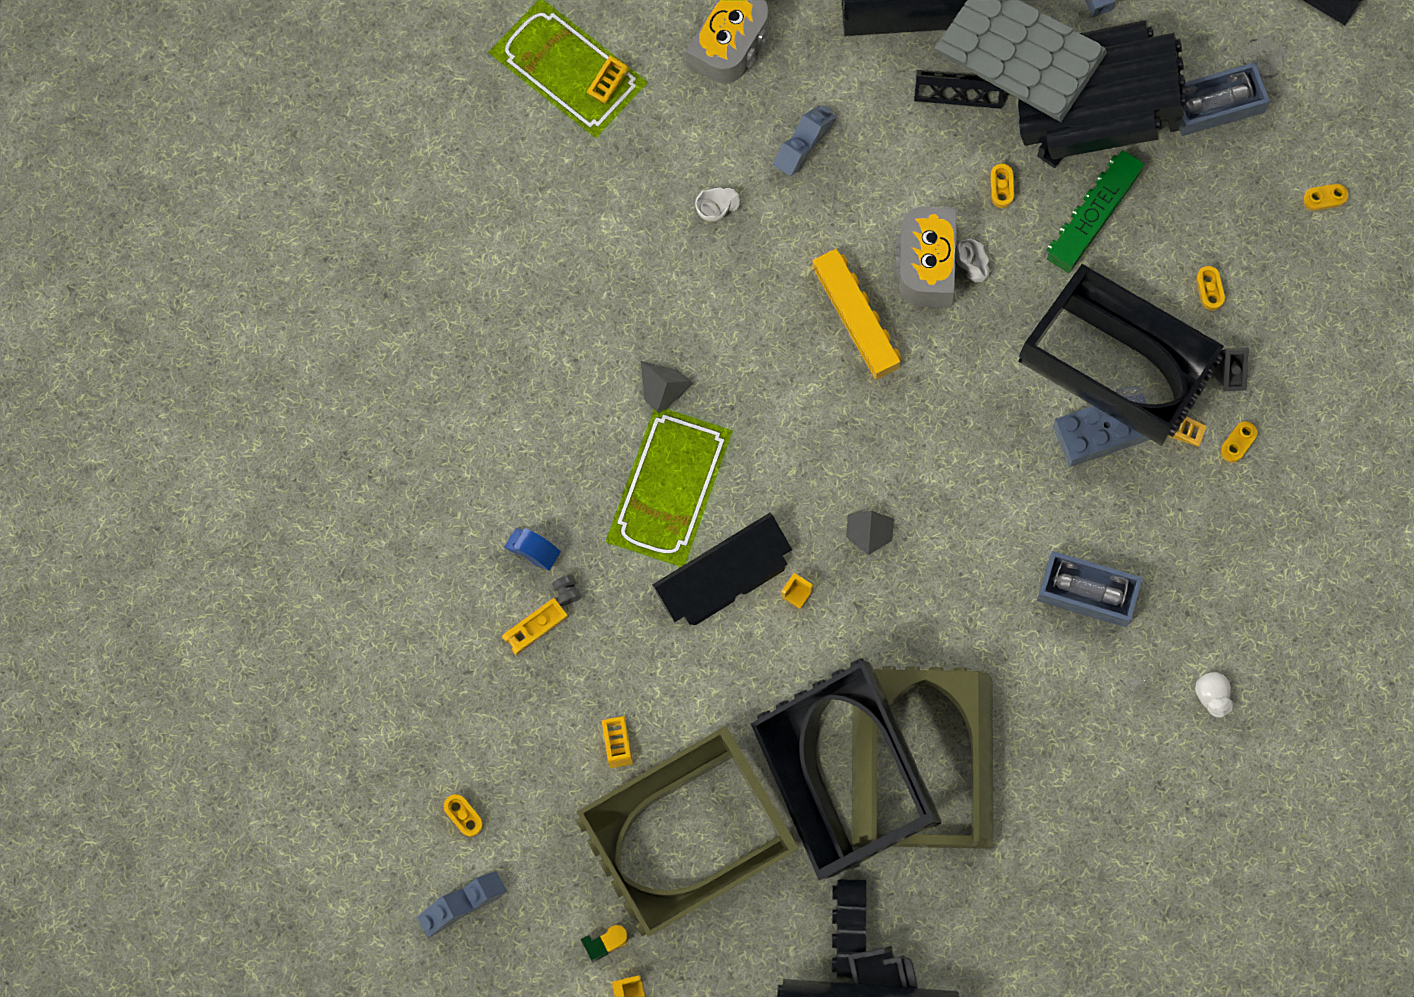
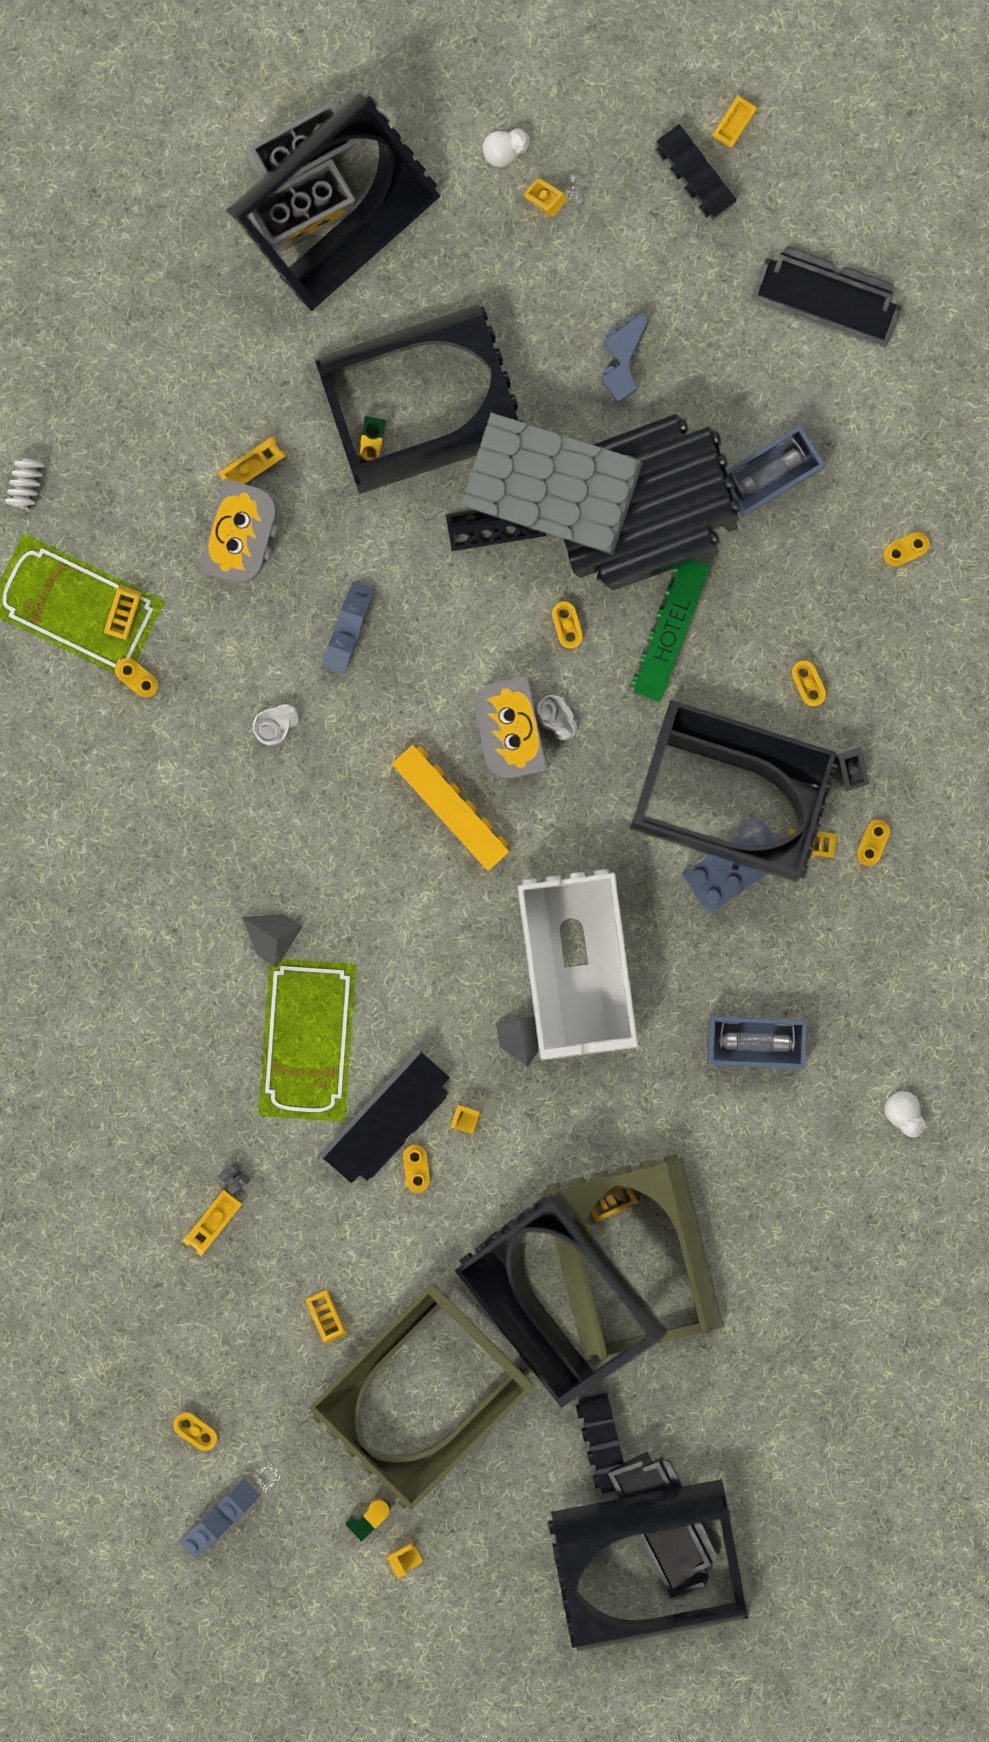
camera: 15 degrees left, 15 degrees up
(533, 548) = (187, 1144): blue brick -> none
(603, 136) = (136, 677): none -> yellow plate
(738, 626) = (416, 1168): none -> yellow plate
(918, 711) = (634, 1198): none -> yellow slope
(930, 518) = (581, 1005): none -> white panel

